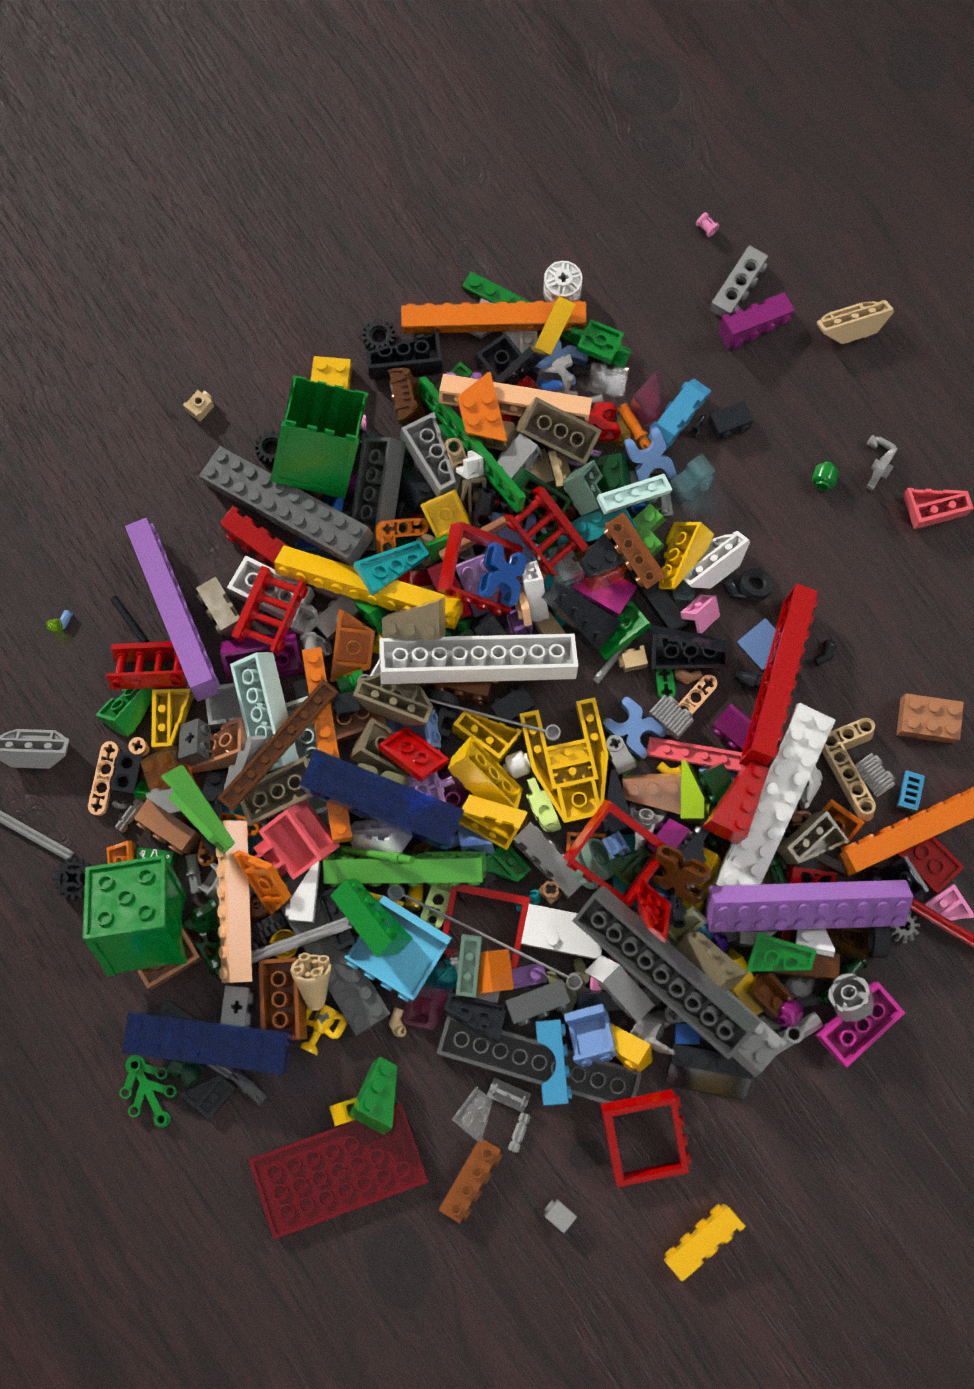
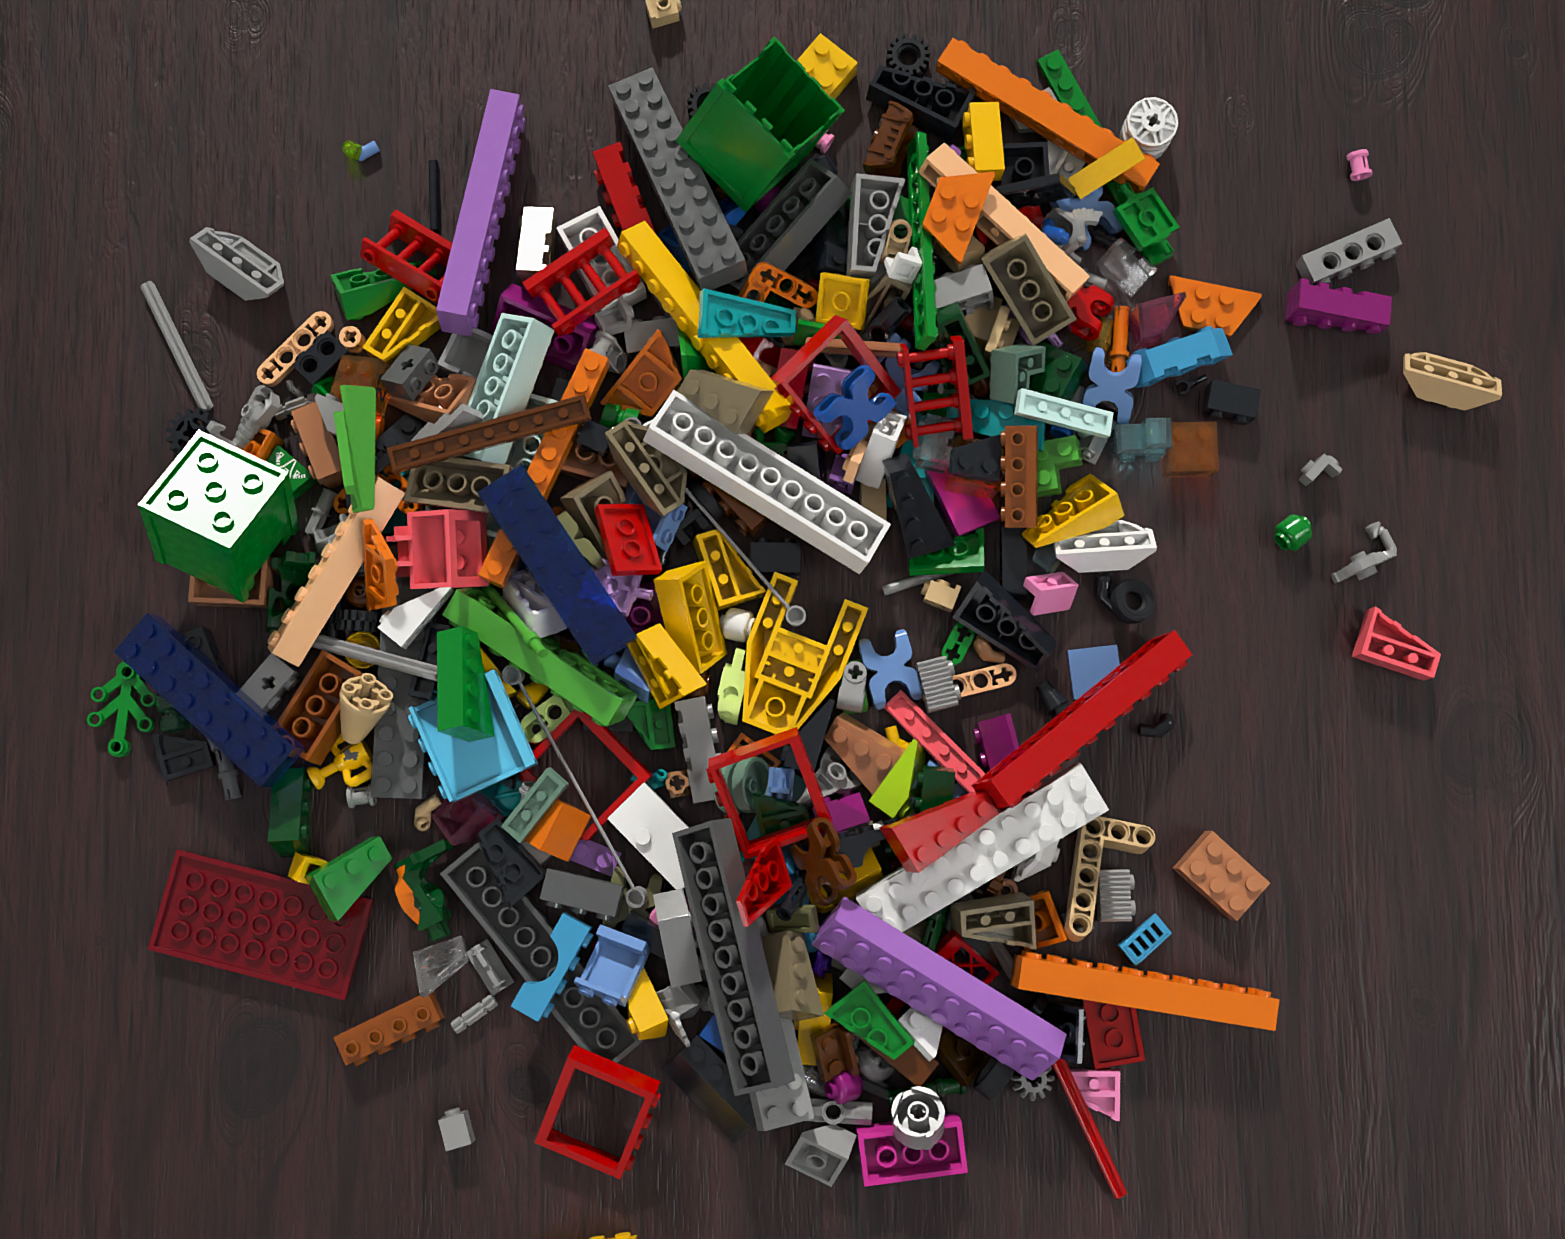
camera: 30 degrees right, 5 degrees up
(106, 838) = (255, 416): none -> light grey animal
(309, 1083) = (291, 813): none -> dark green wedge
(347, 1040) = (359, 796): none -> light grey bush
(435, 1079) = (421, 898): none -> dark green hips
(464, 356) = (984, 138): none -> yellow wedge
(677, 368) = (1212, 305): none -> orange wing
(730, 466) = (1192, 451): none -> clear orange brick
(805, 1066) = (822, 1152): none -> light grey slope
(809, 429) = (1313, 469): none -> light grey bracket

